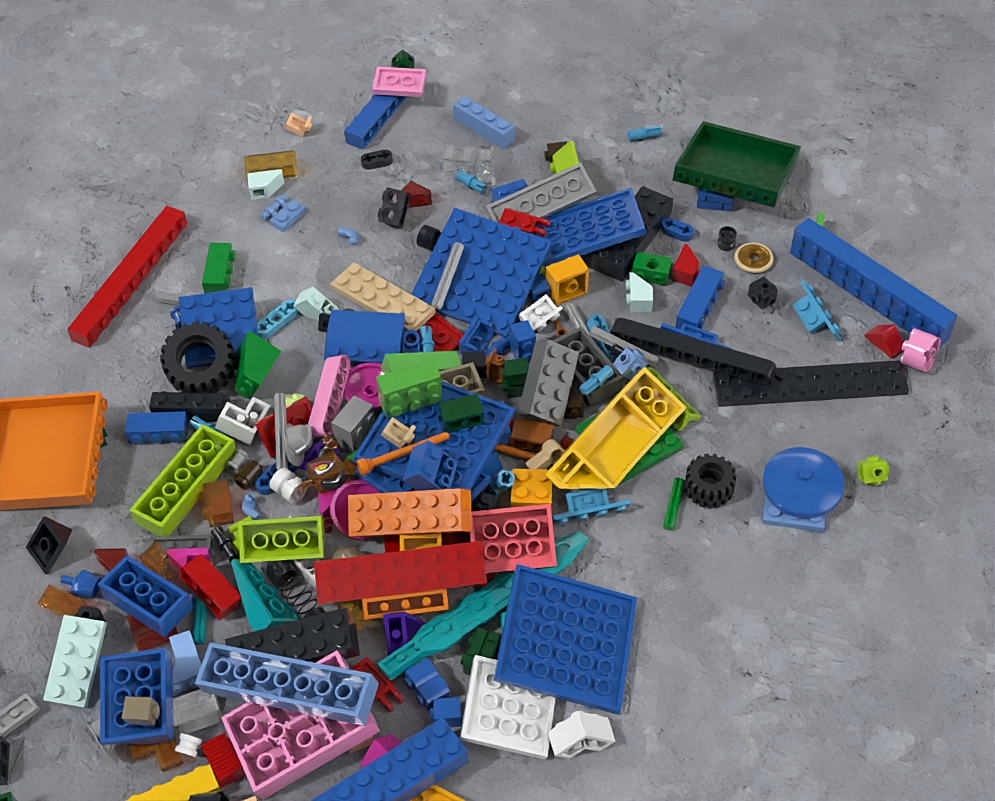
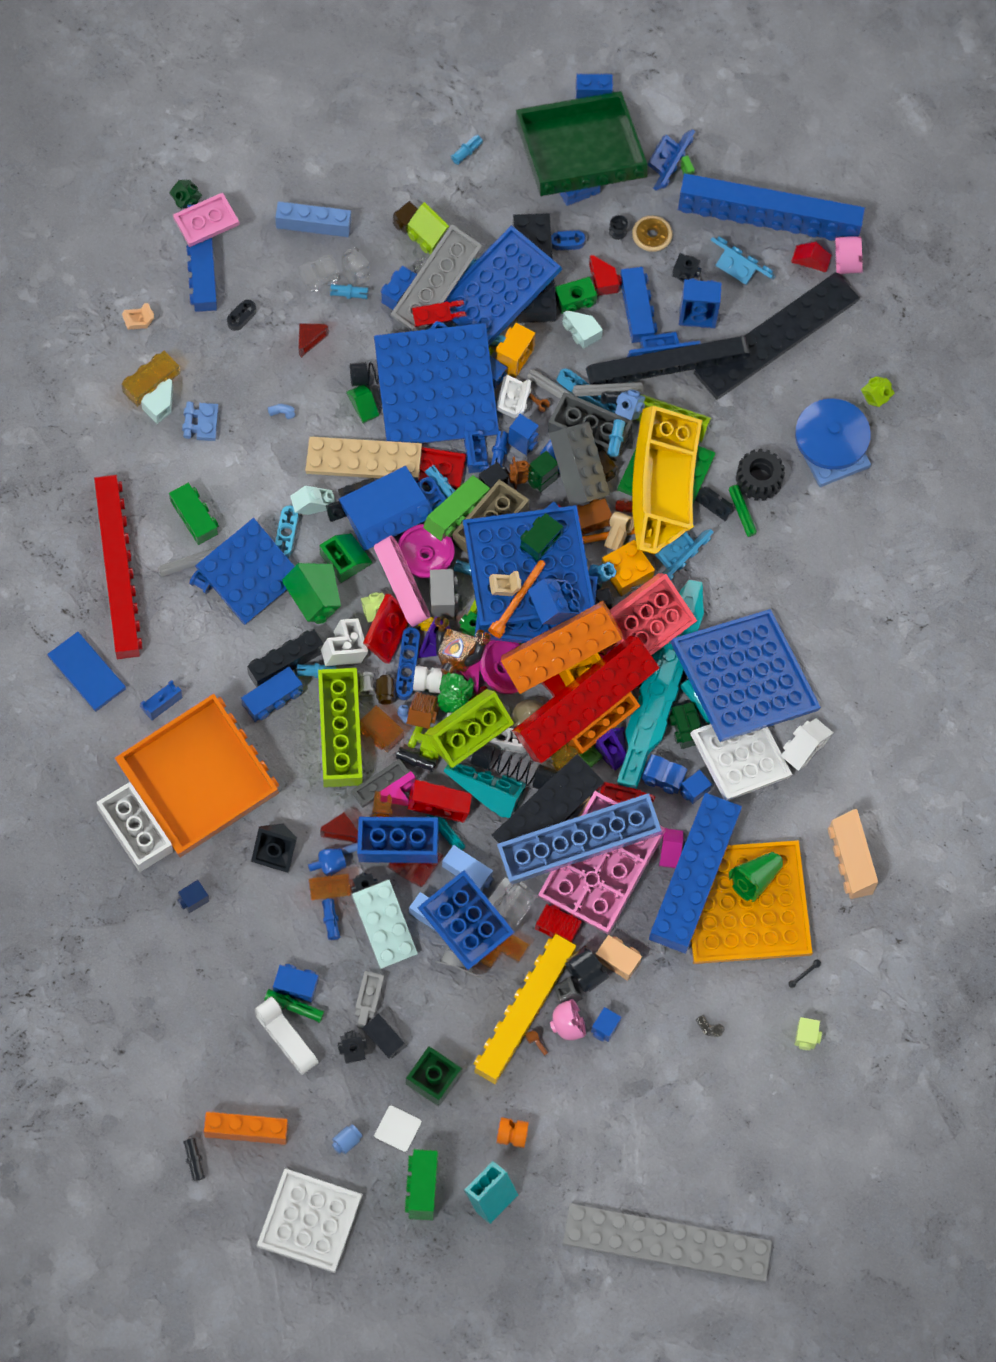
camera: 40 degrees left, 15 degrees up
(35, 642) = (331, 919): none -> blue pin
(39, 336) = (86, 671): none -> blue tile
(73, 385) = (161, 700): none -> blue hinge
(140, 710) = (486, 926): dark tan brick -> none
(188, 338) = (286, 603): black tyre -> none
(188, 745) = (528, 930): white wheel -> none
(260, 505) = (423, 710): none -> dark orange brick
(280, 430) = (391, 637): light grey axle -> none
(297, 442) = (412, 635): light grey piece -> none
(298, 504) = (454, 692): none -> green hair
(303, 356) = (345, 555): none -> green slope
(374, 629) = (591, 756): none -> bright green tile
(399, 208) = (311, 359): black brick -> none
(409, 388) = (488, 540): bright green brick -> none
(415, 261) = (363, 403): none -> green slope
(447, 275) = (413, 406): light grey axle -> none
(650, 478) = (710, 500): none -> black hinge
(751, 318) = (700, 303): none -> blue brick
(782, 132) = (593, 84): none -> blue brick
(807, 208) = (667, 156): none -> blue bracket

